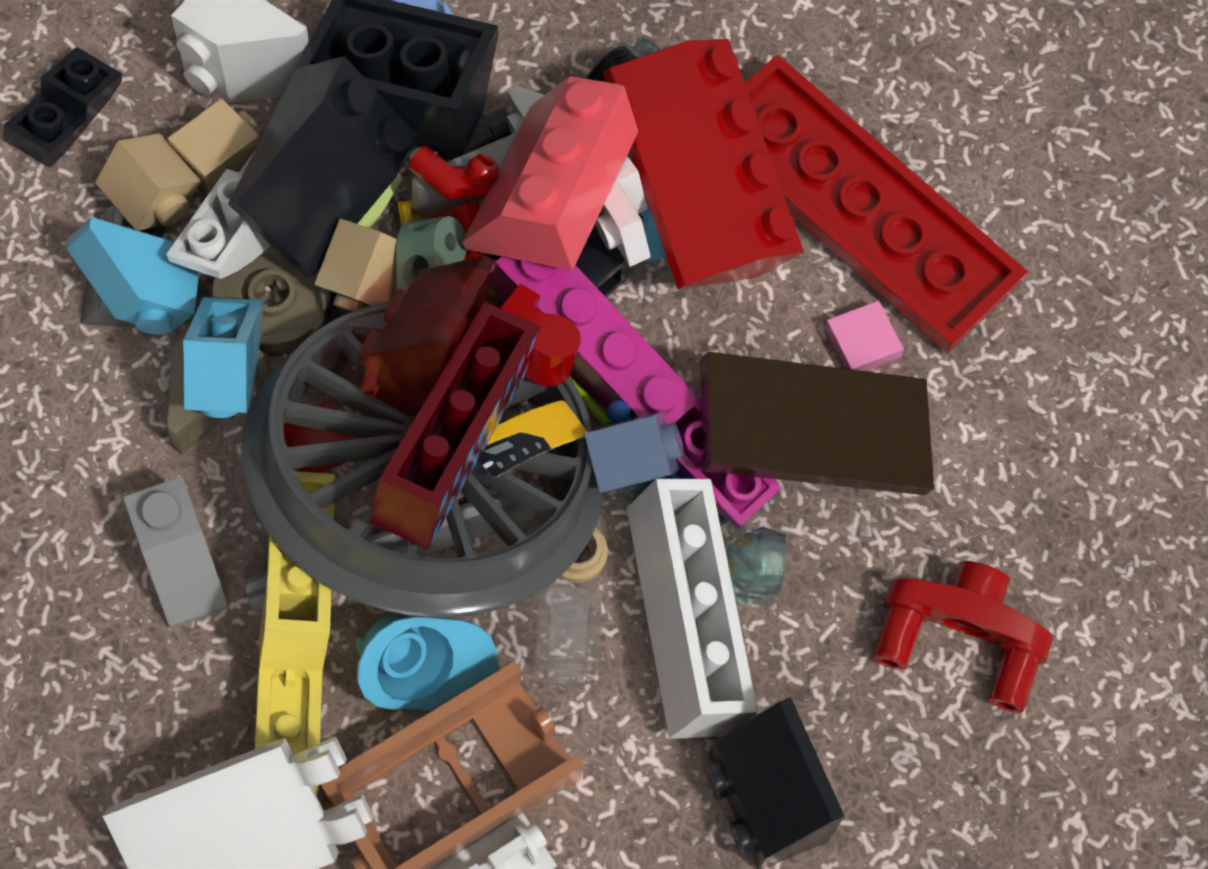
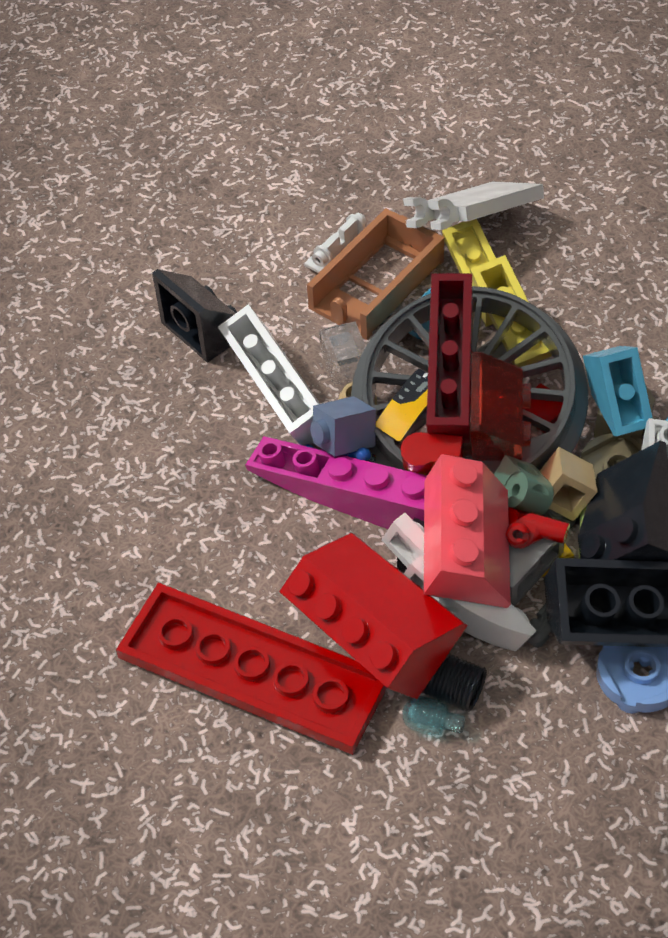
camera: 170 degrees right, 15 degrees down
(175, 552) = (592, 322): light grey slope -> none
(757, 566) = (248, 416): clear light blue rock -> none
(815, 424) = (234, 499): dark brown tile -> none
(864, 338) = (221, 580): bright pink tile -> none
(977, 608) = (107, 440): red connector -> none

